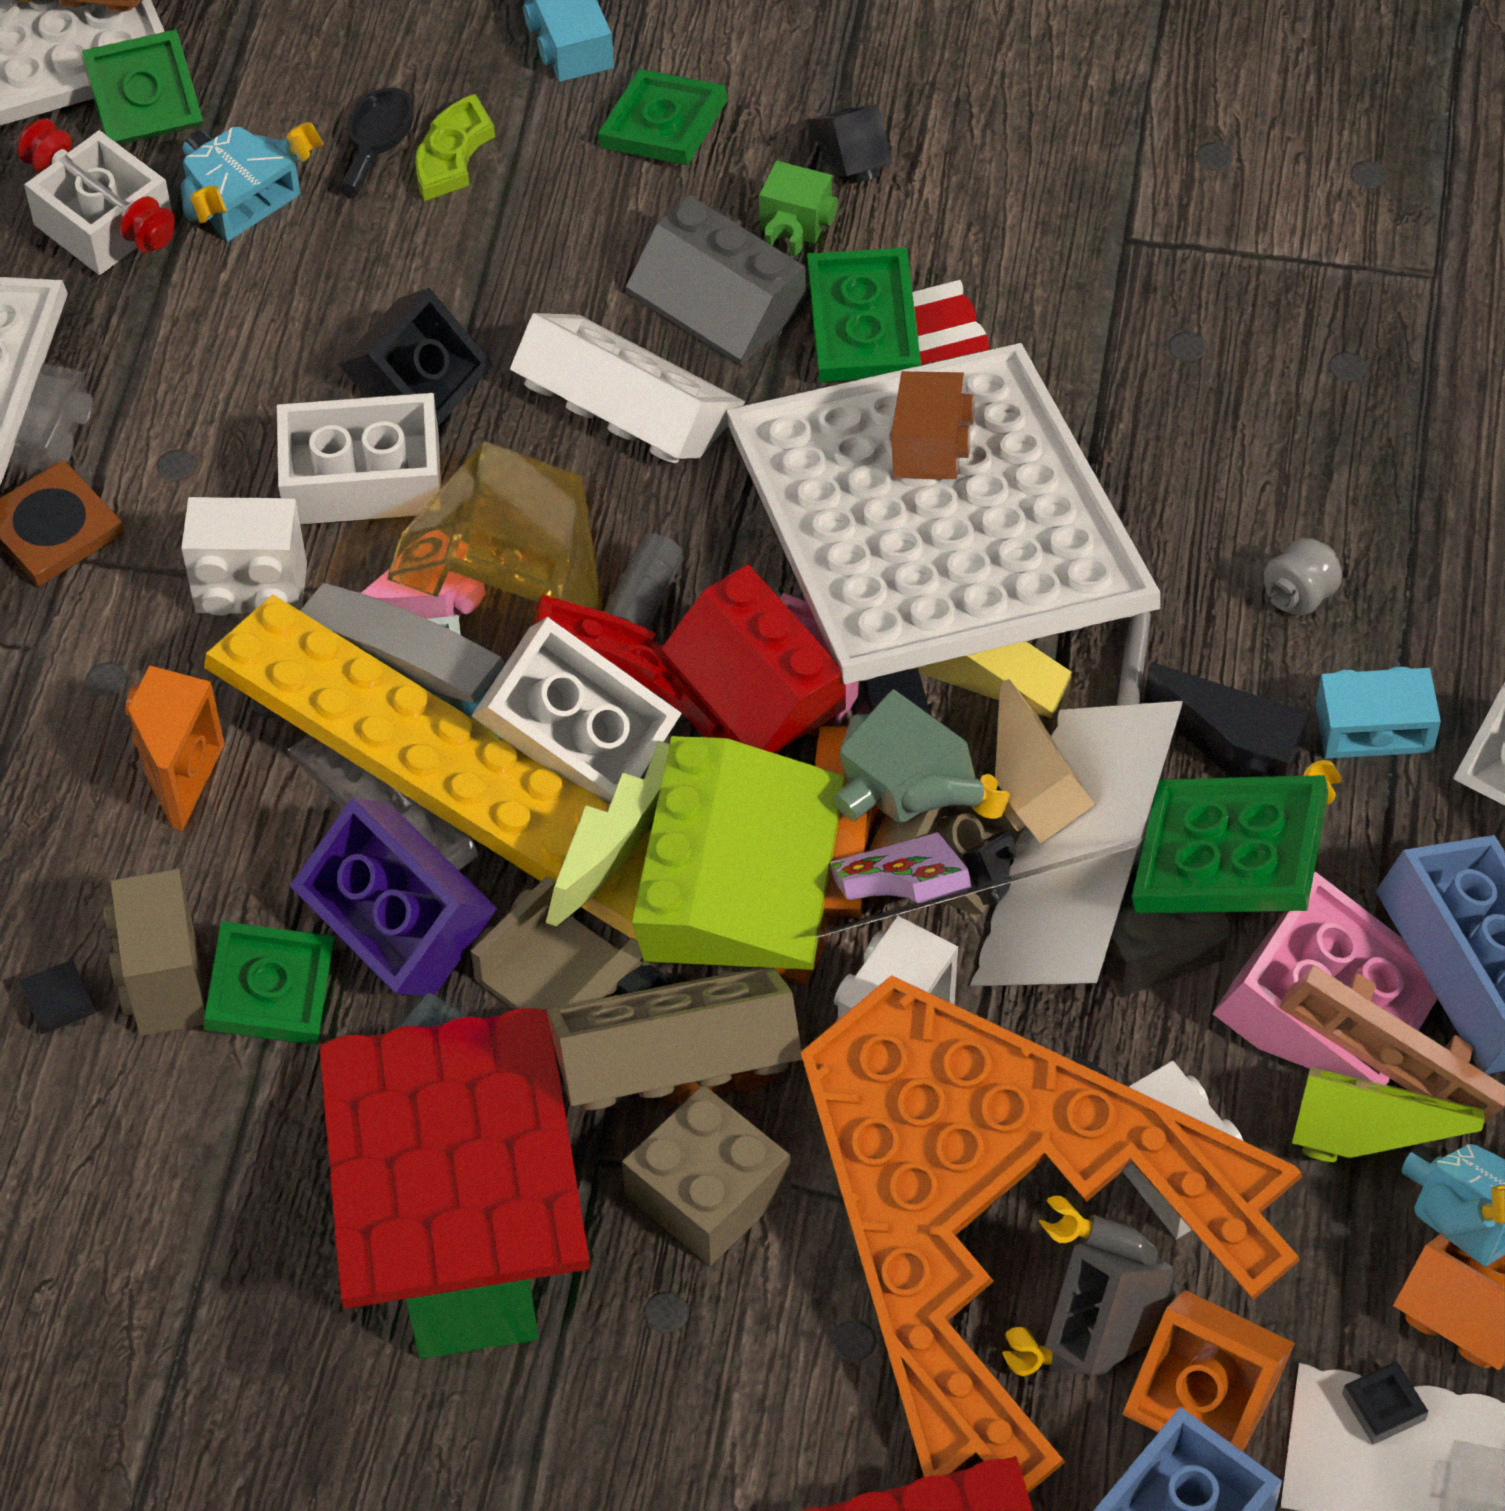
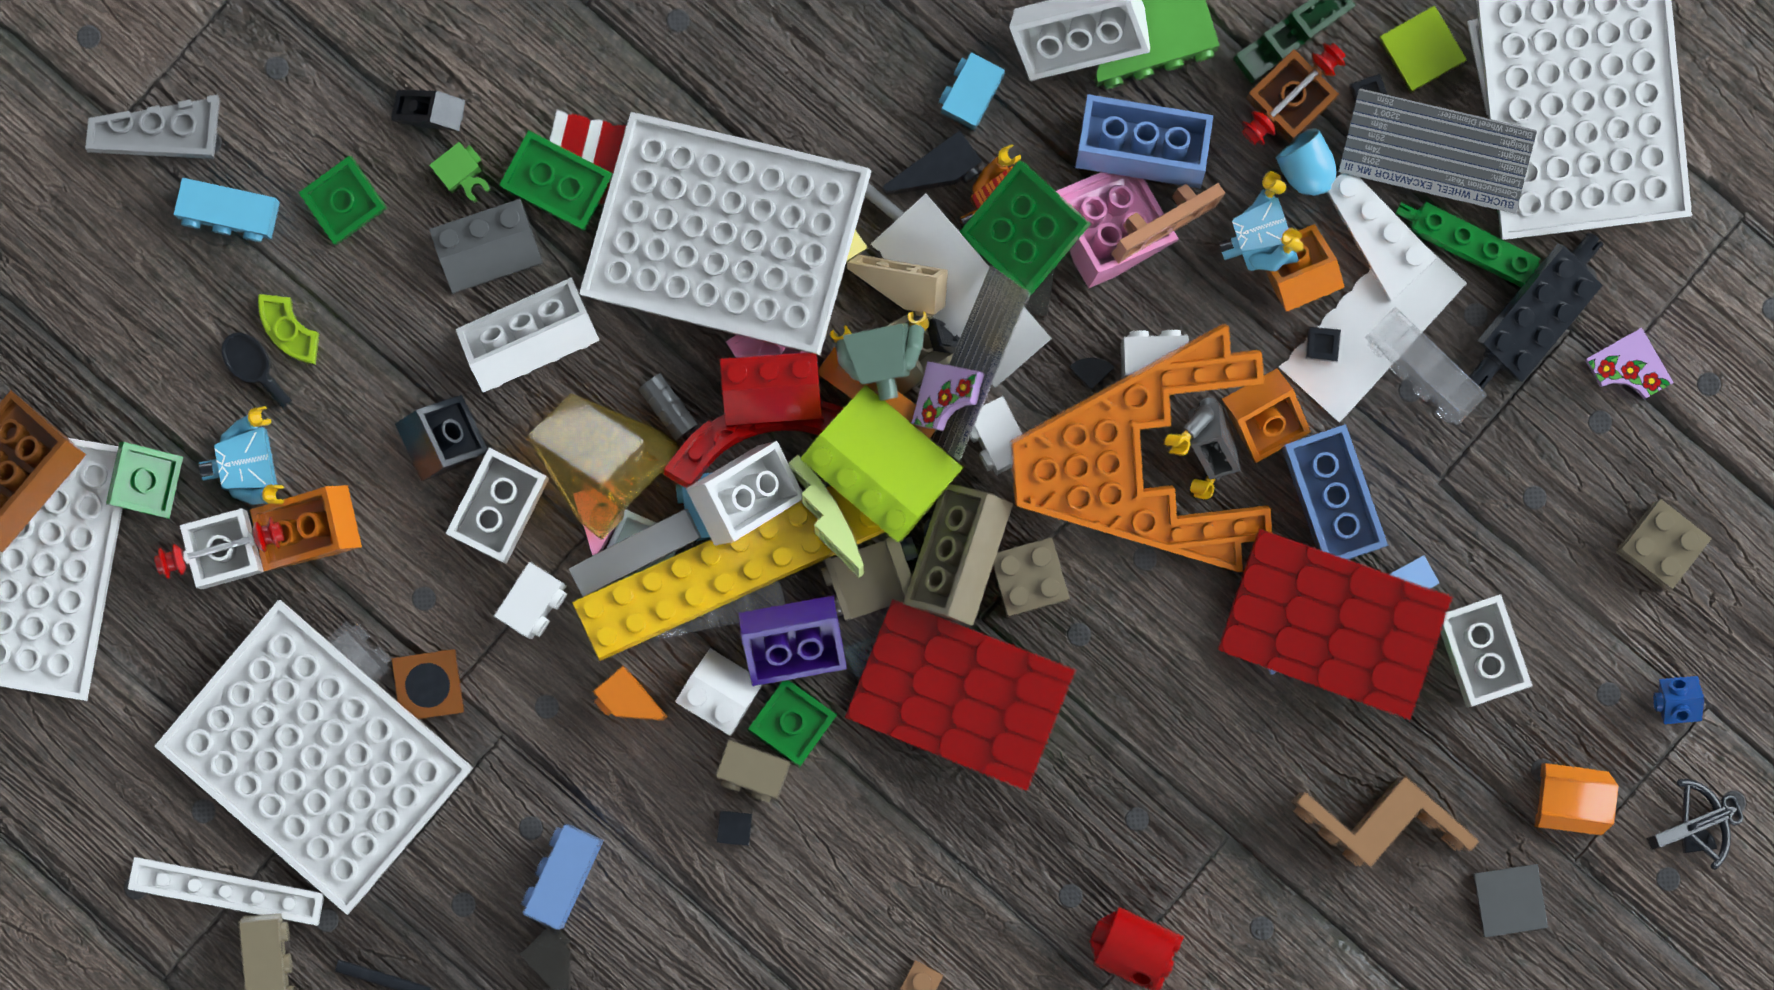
camera: 60 degrees left, 30 degrees up
(195, 284) = (313, 527): none -> orange slope
(249, 859) = (718, 692): none -> white slope
(929, 425) = (676, 205): dark orange brick -> none
(1302, 576) = (871, 71): light grey piece -> none
(1368, 1117) = (1192, 253): lime slope -> none

